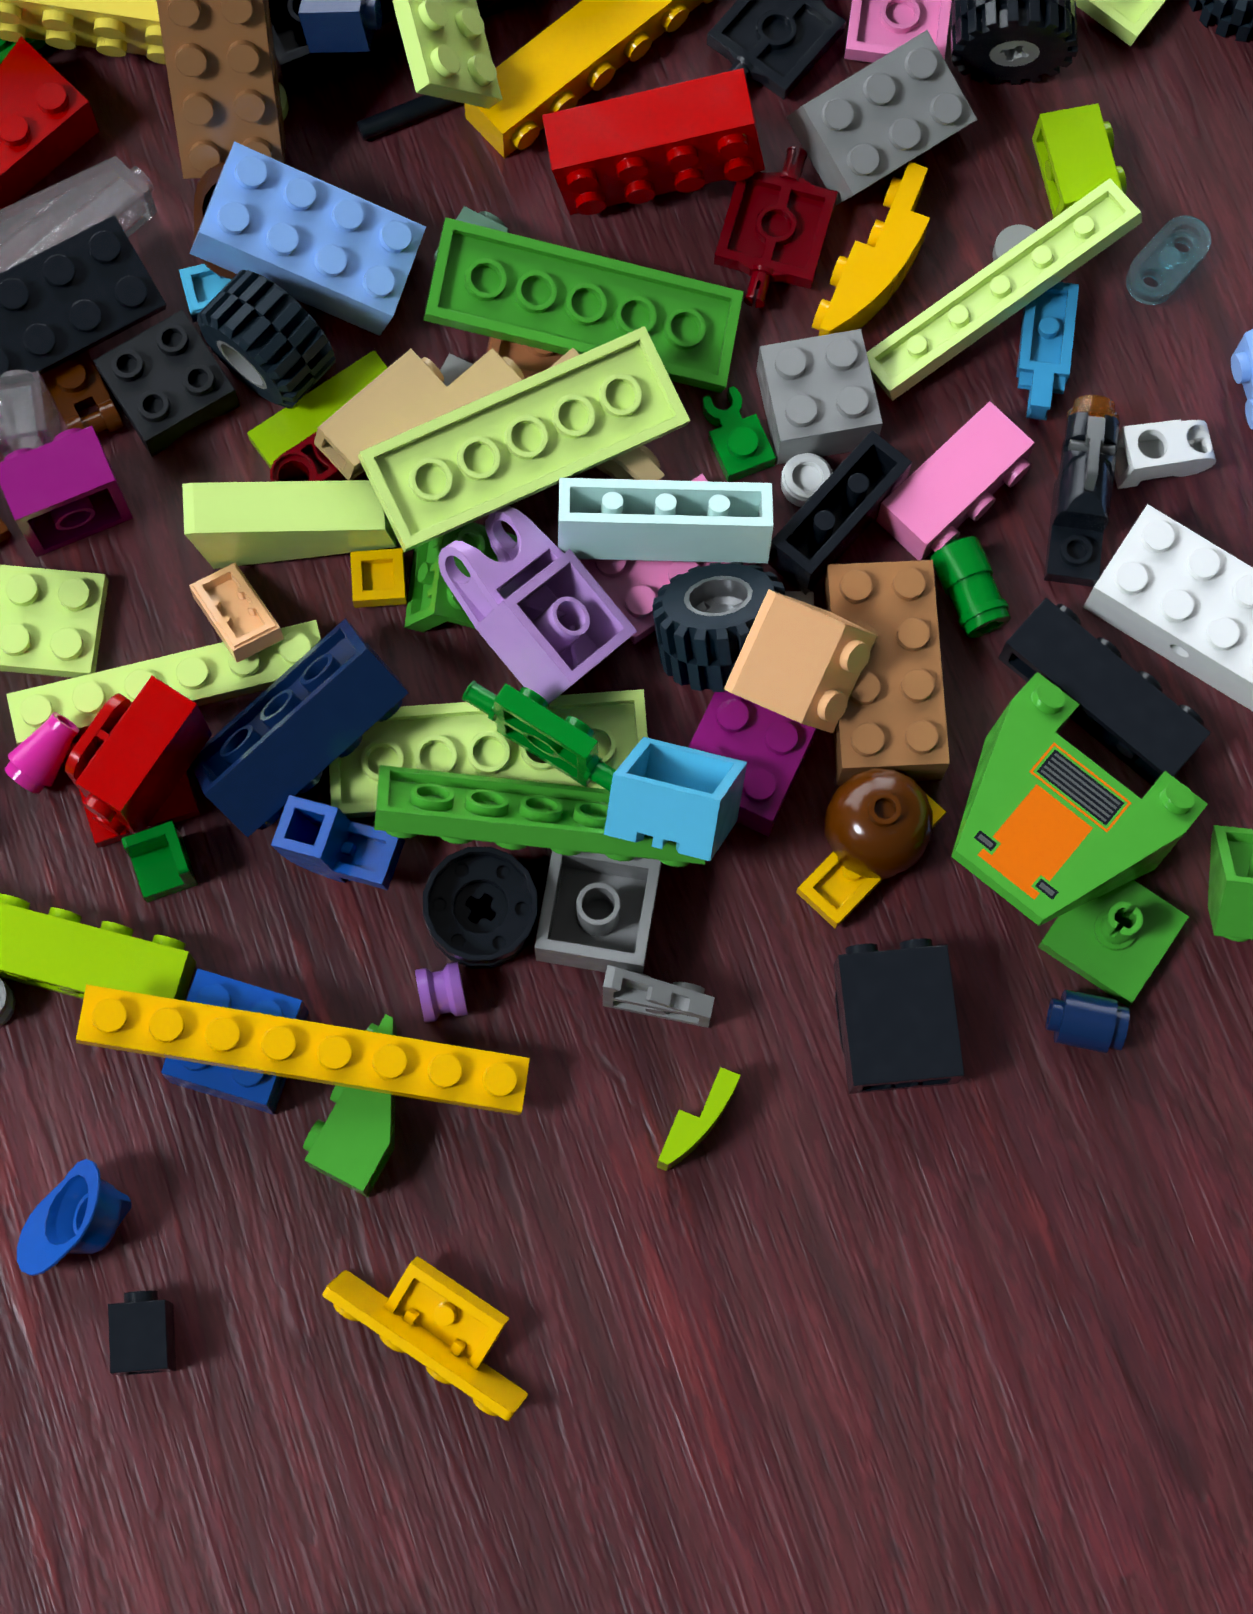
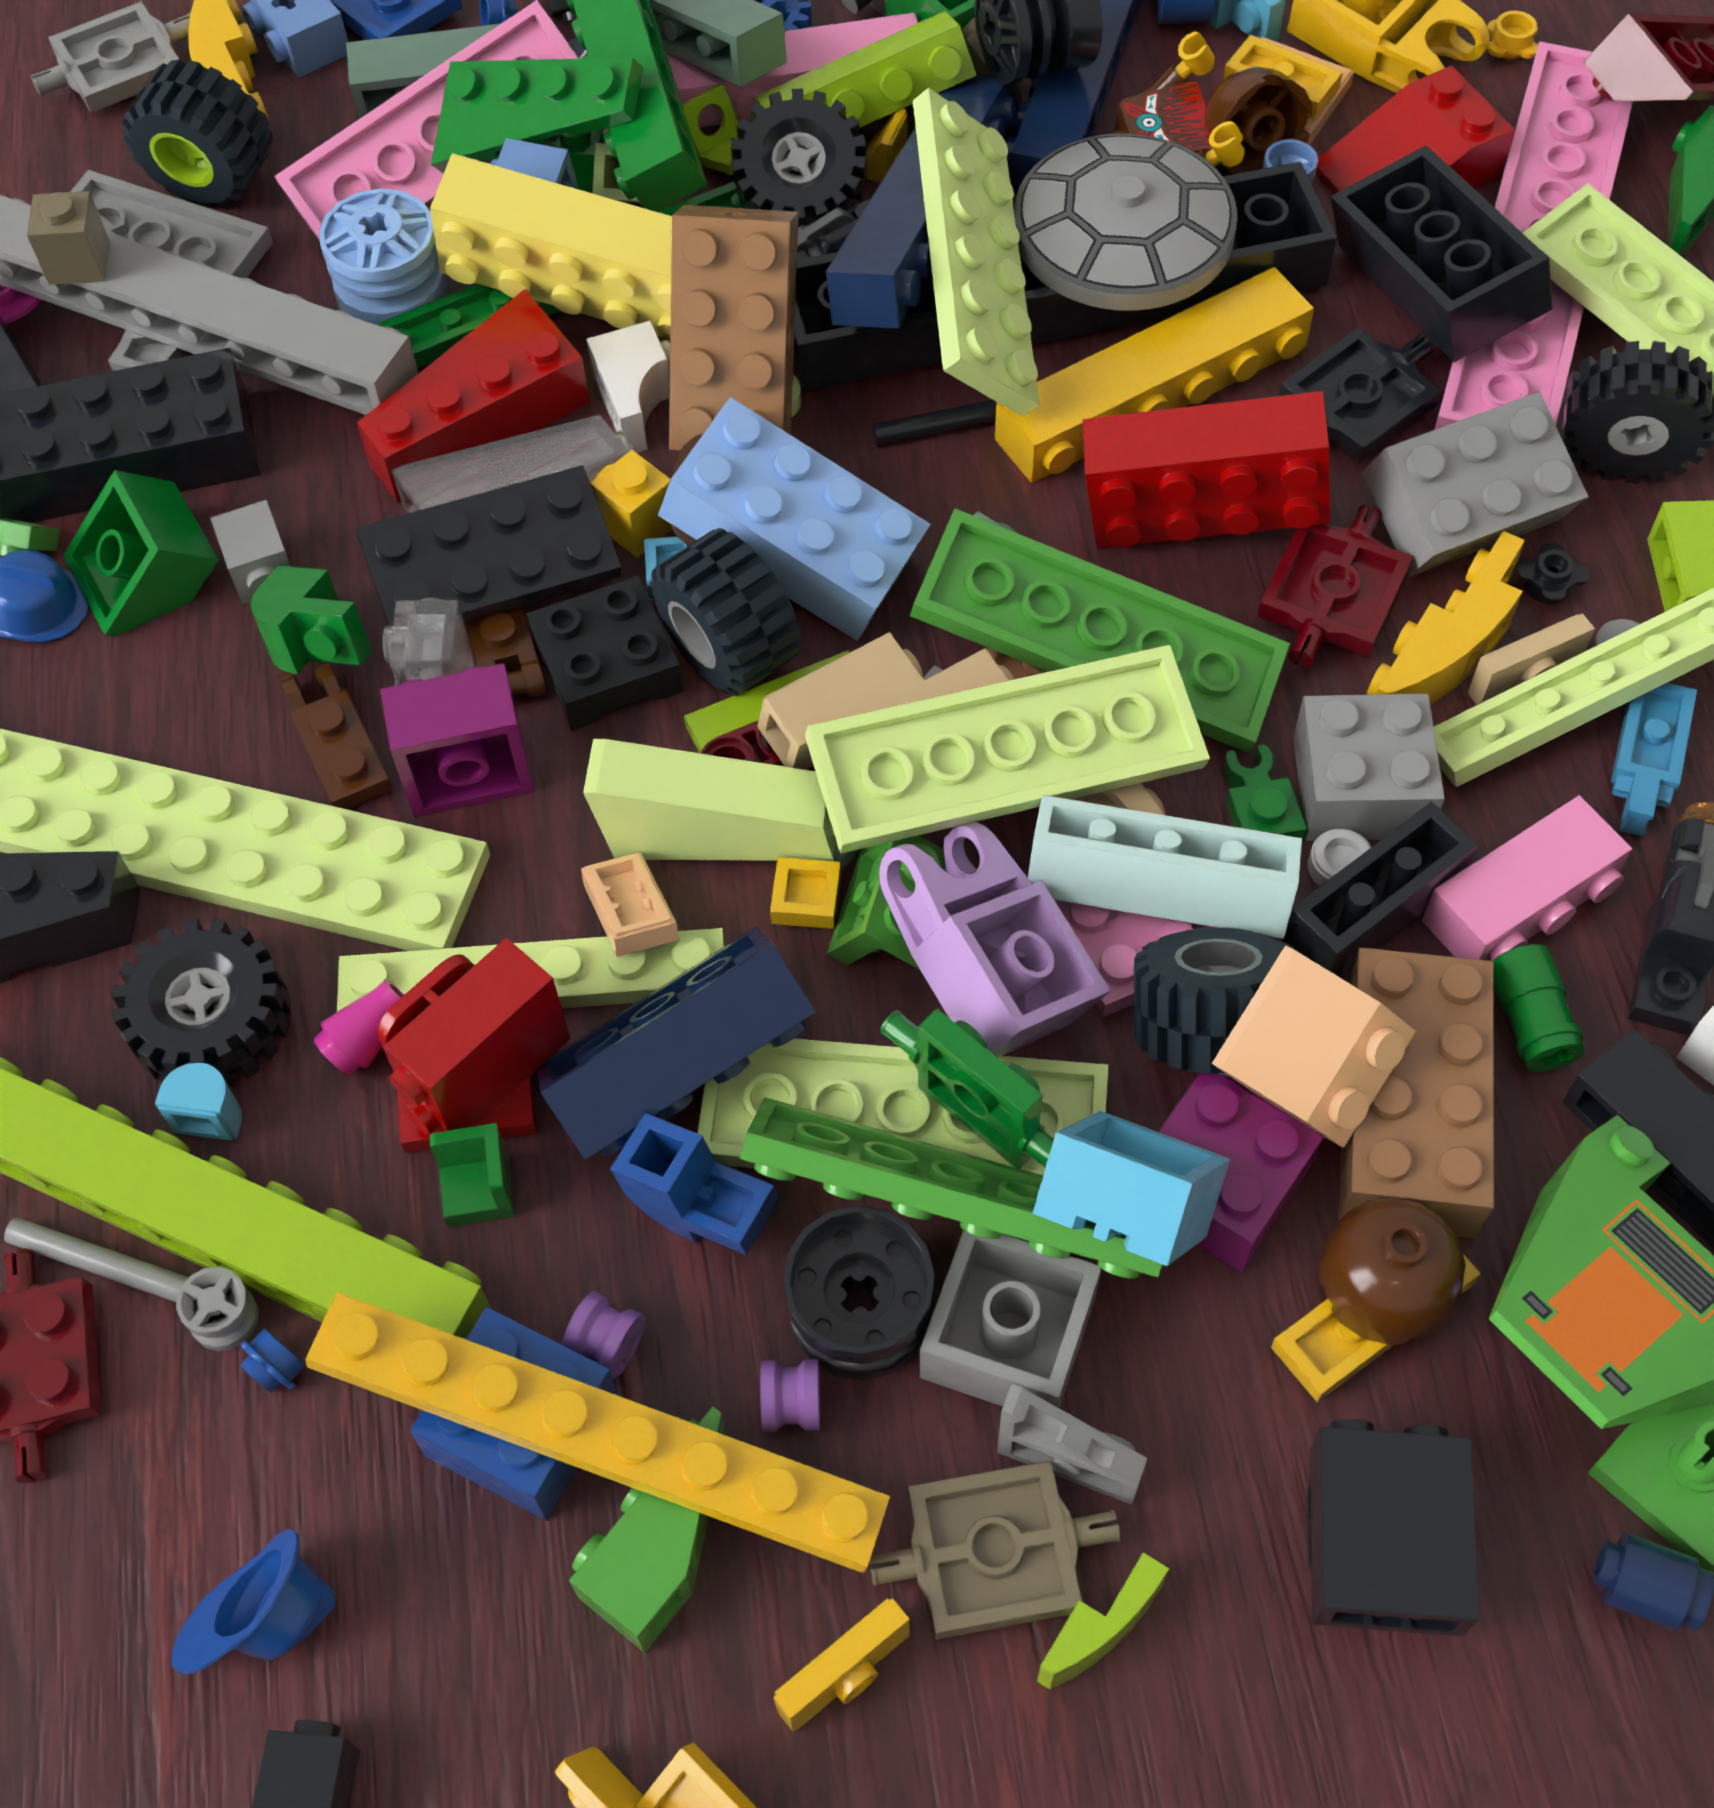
camera: 15 degrees right, 15 degrees down
(36, 1033) = (271, 1362): none -> blue plate
(134, 106) = (631, 377): none -> white arch
(161, 234) = (630, 501): none -> yellow brick
(289, 969) = (604, 1333): none -> medium lavender wheel
(516, 1184) = (843, 1667): none -> yellow plate
(611, 1079) = (994, 1549): none -> dark tan plate
(942, 276) = (1529, 657): none -> tan plate
(950, 200) = (1551, 574): none -> black plate

